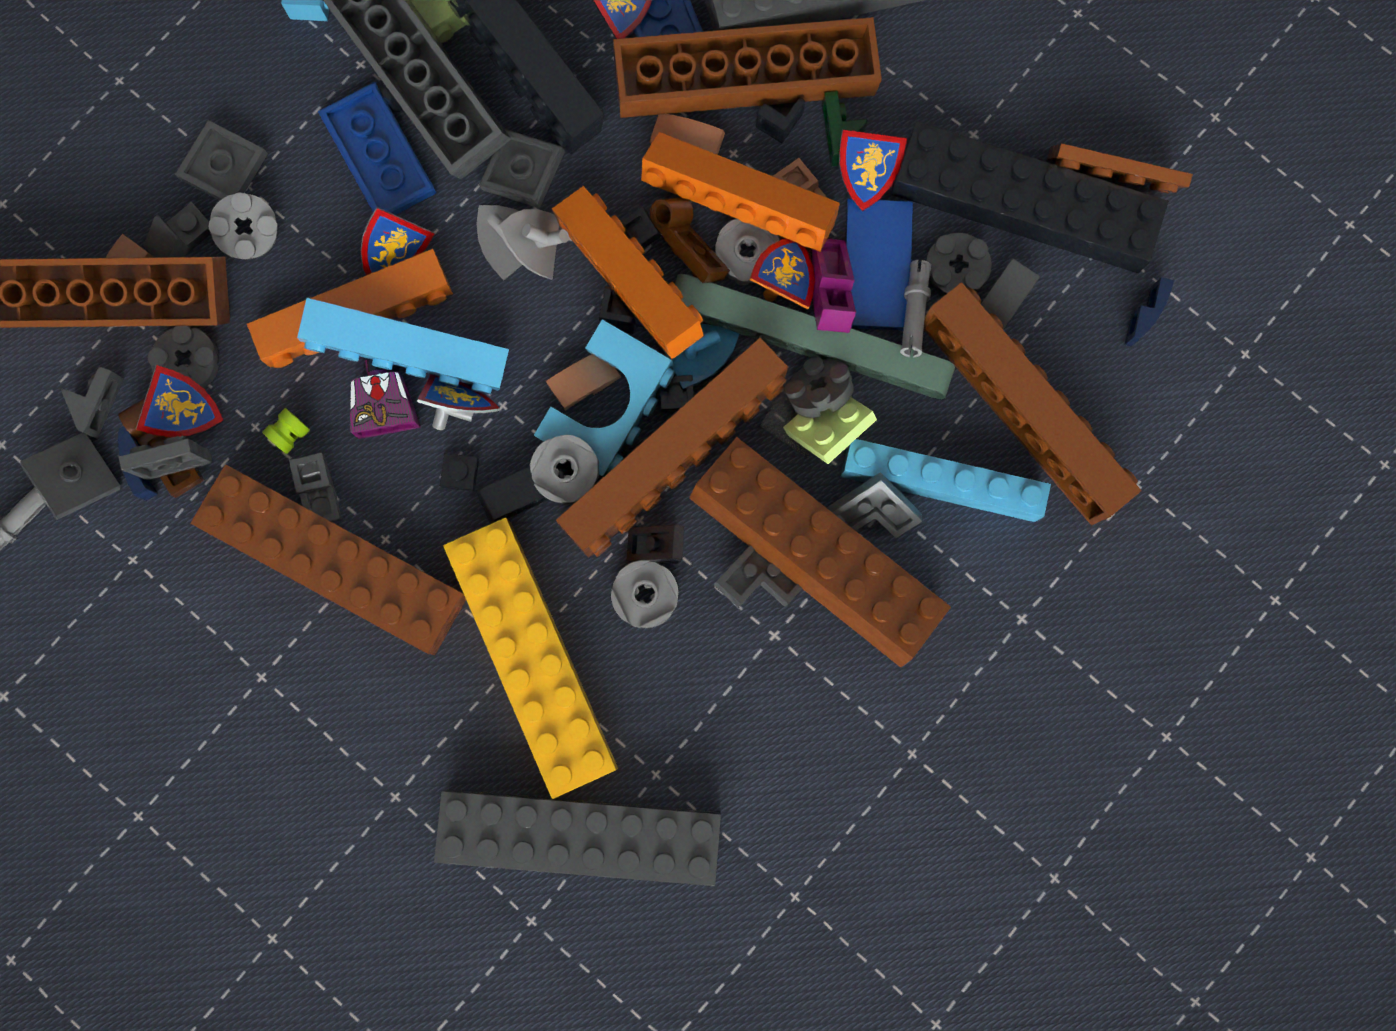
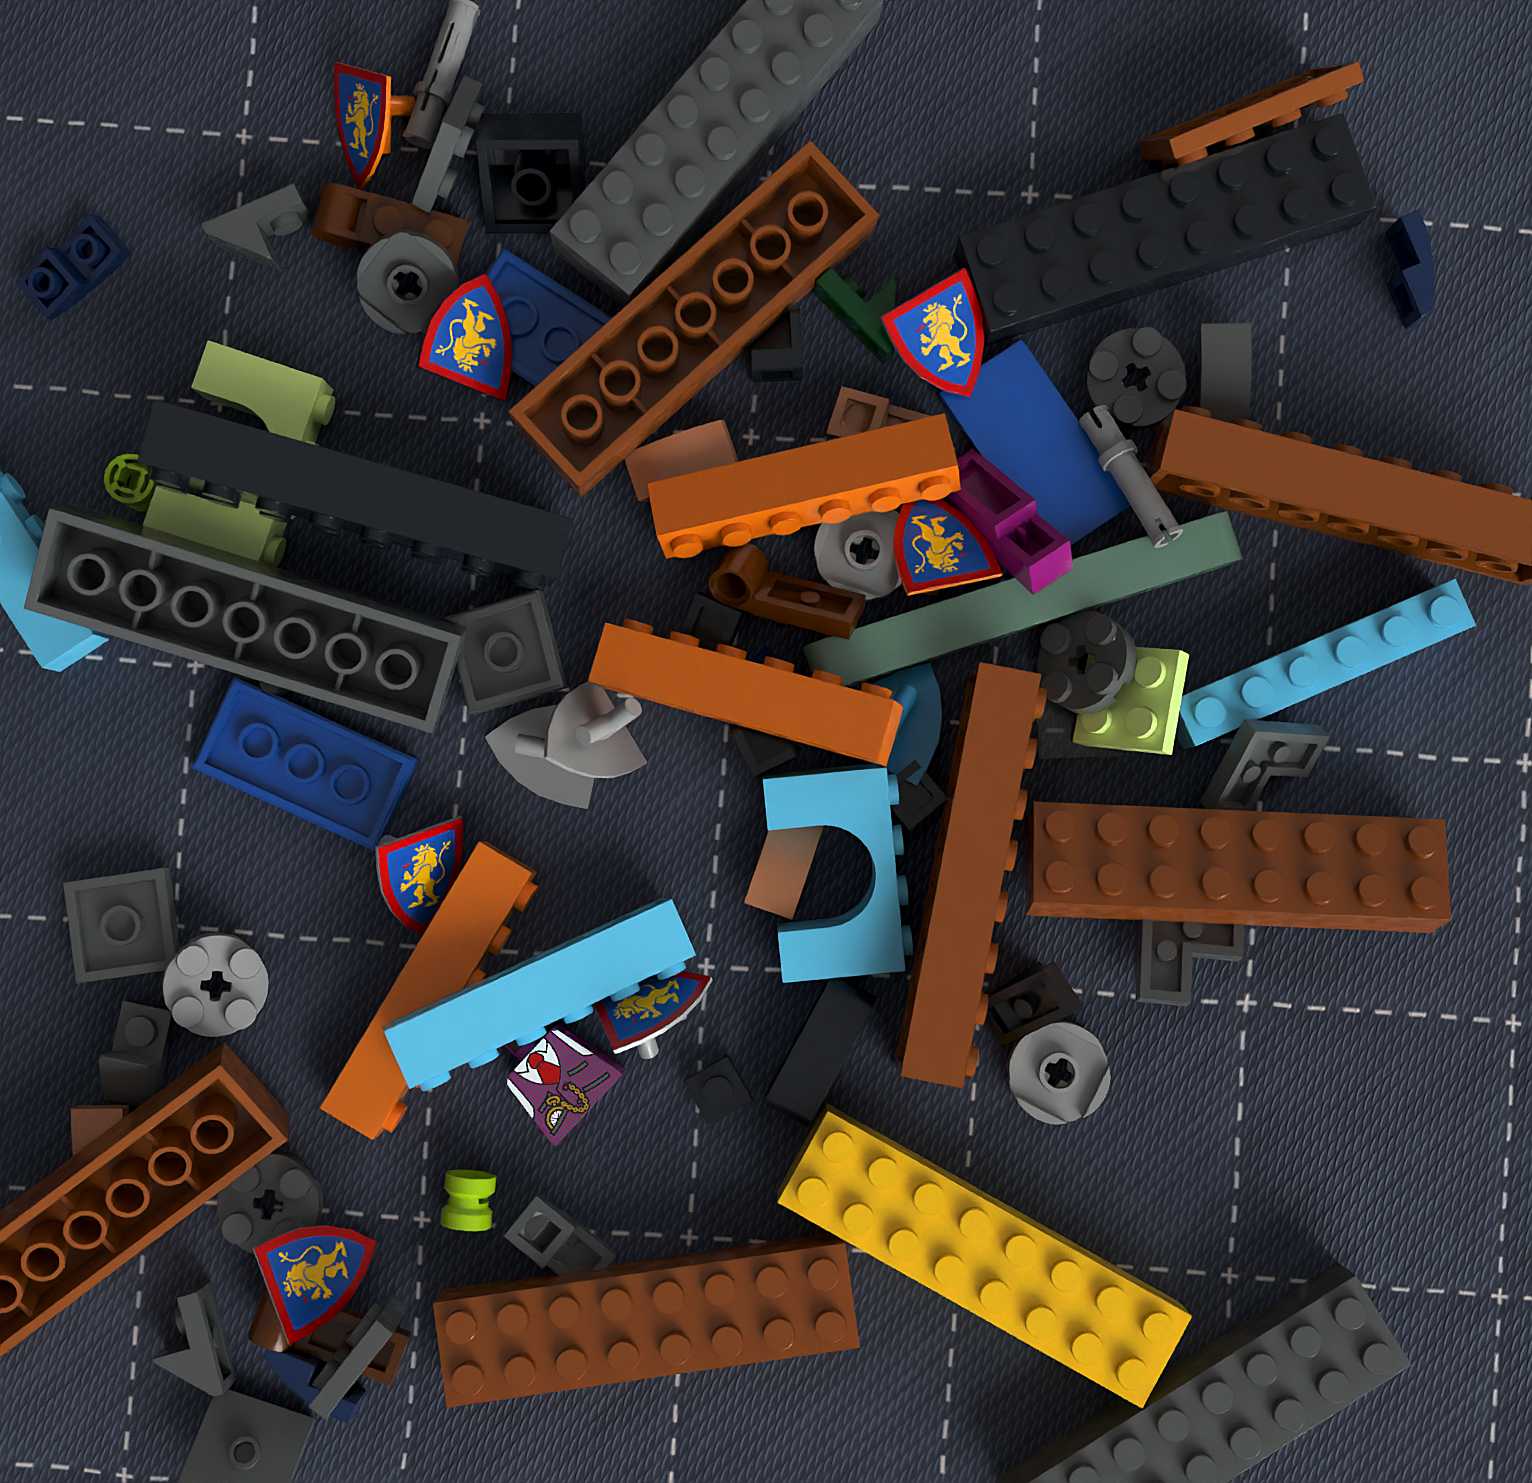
camera: 35 degrees left, 5 degrees up
(559, 451) = (880, 1017): light grey plate -> none

